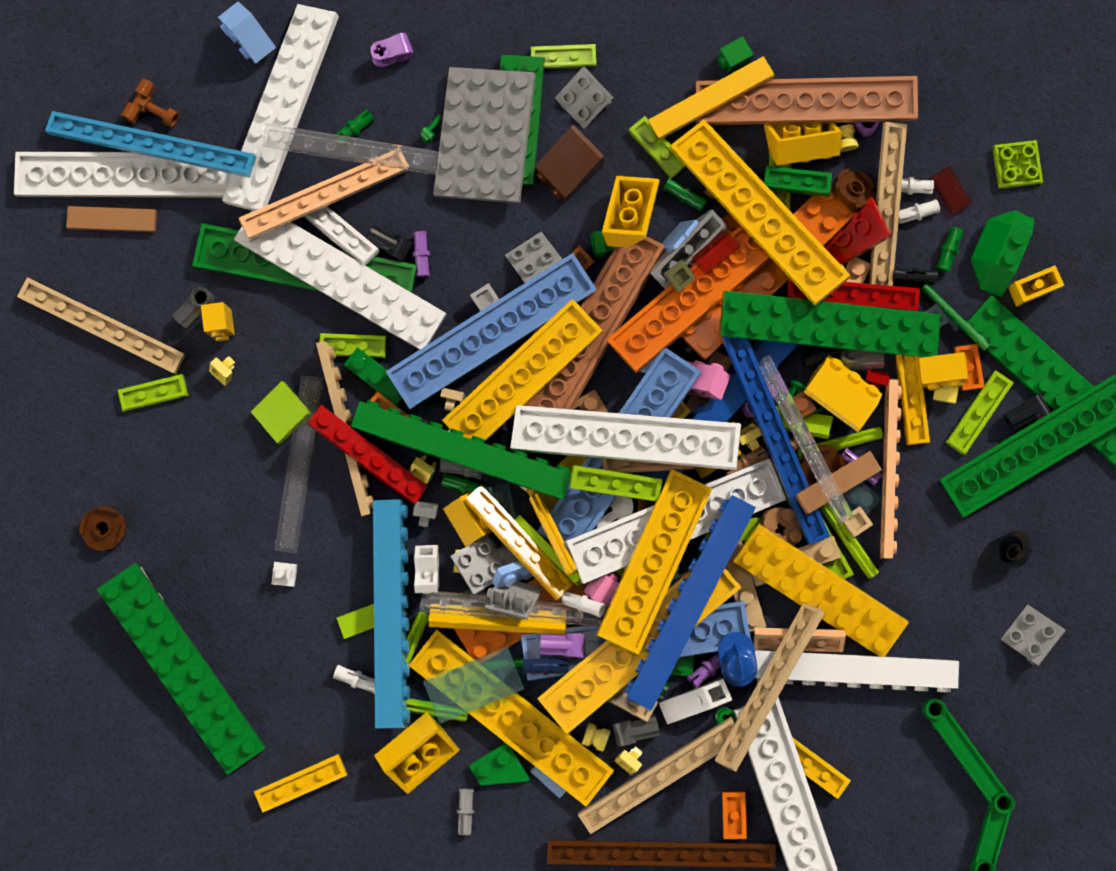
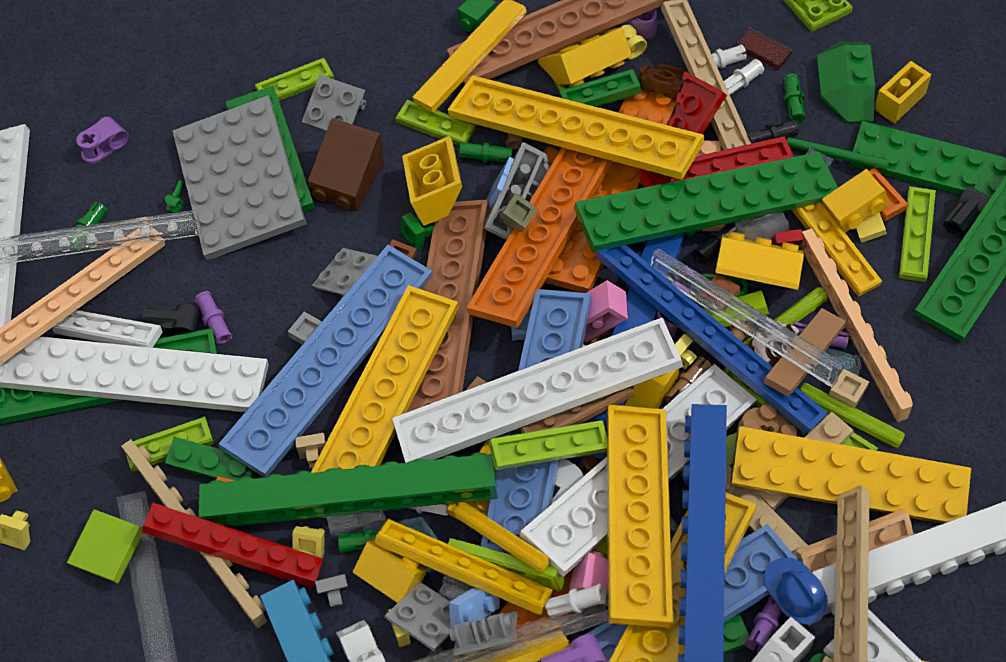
camera: 20 degrees left, 25 degrees down
(715, 252) = (546, 180): clear red tile -> none

